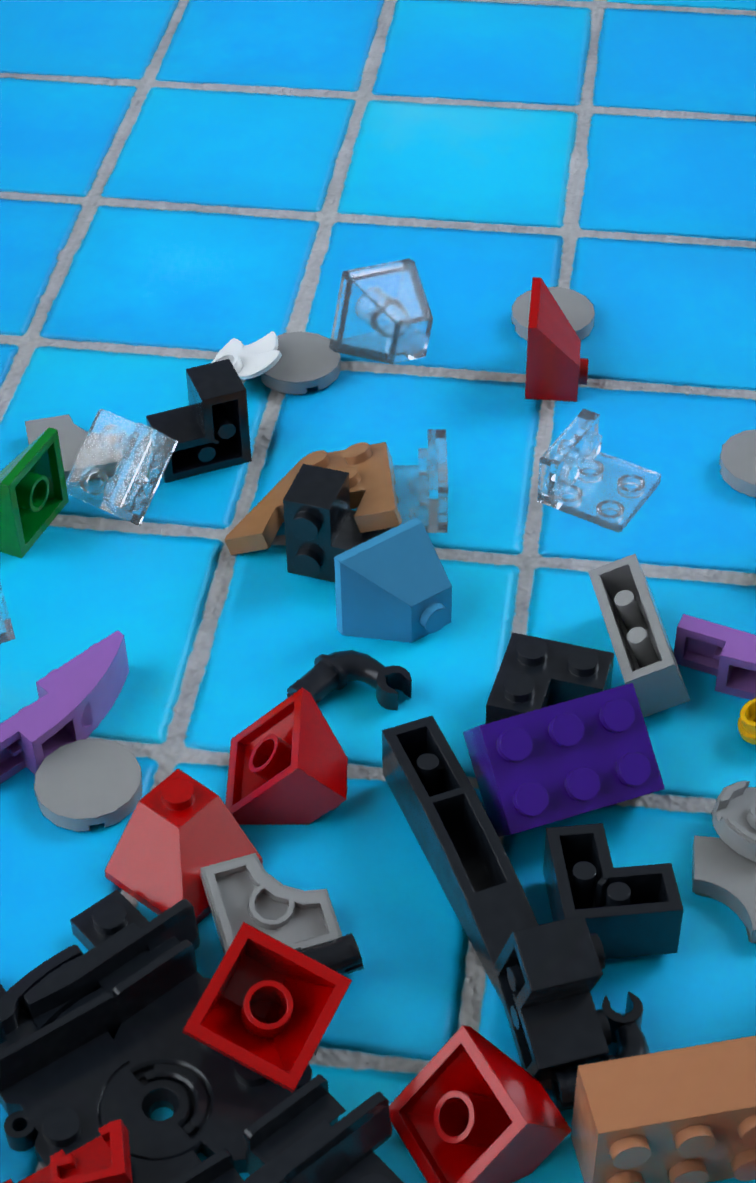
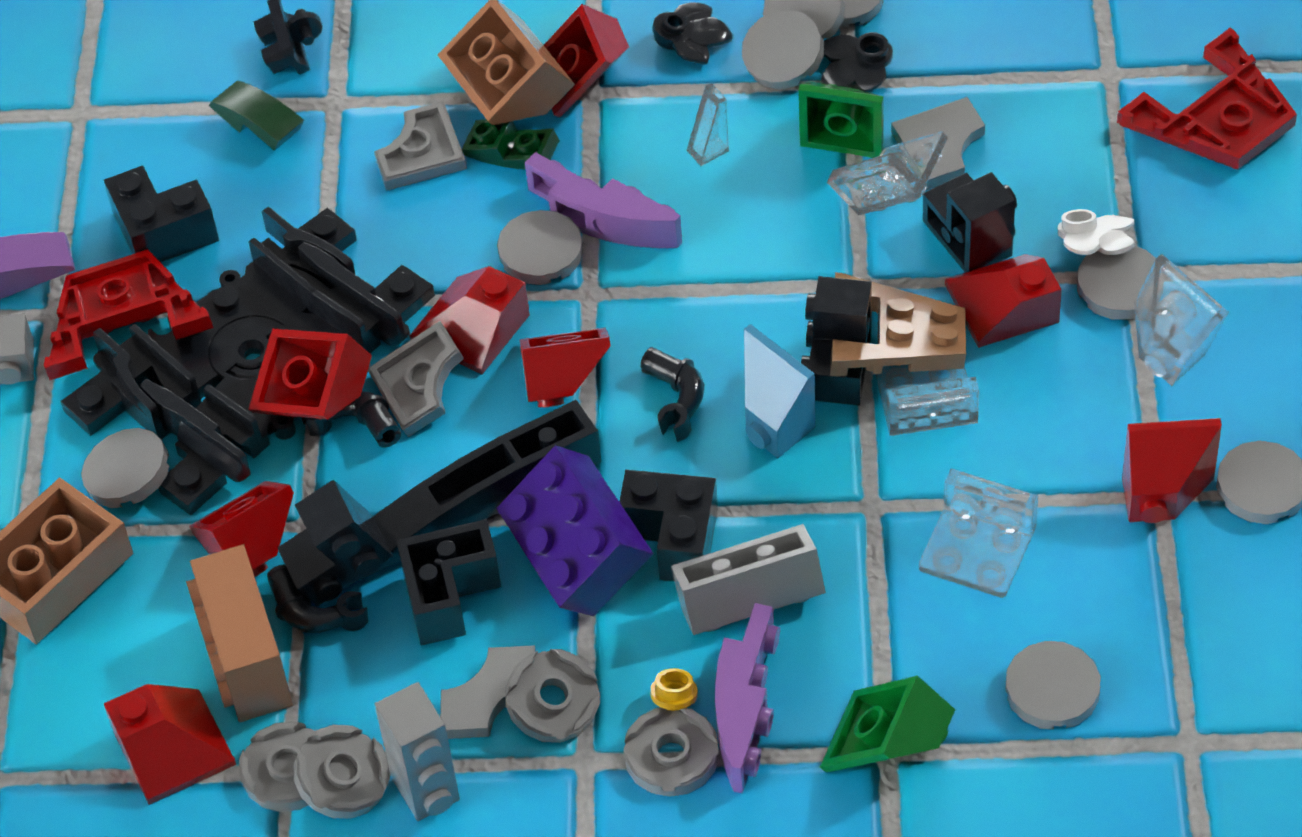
camera: 85 degrees right, 10 degrees up
(129, 267) = (1229, 120): none -> red wing
(293, 421) = (1007, 298): none -> red slope

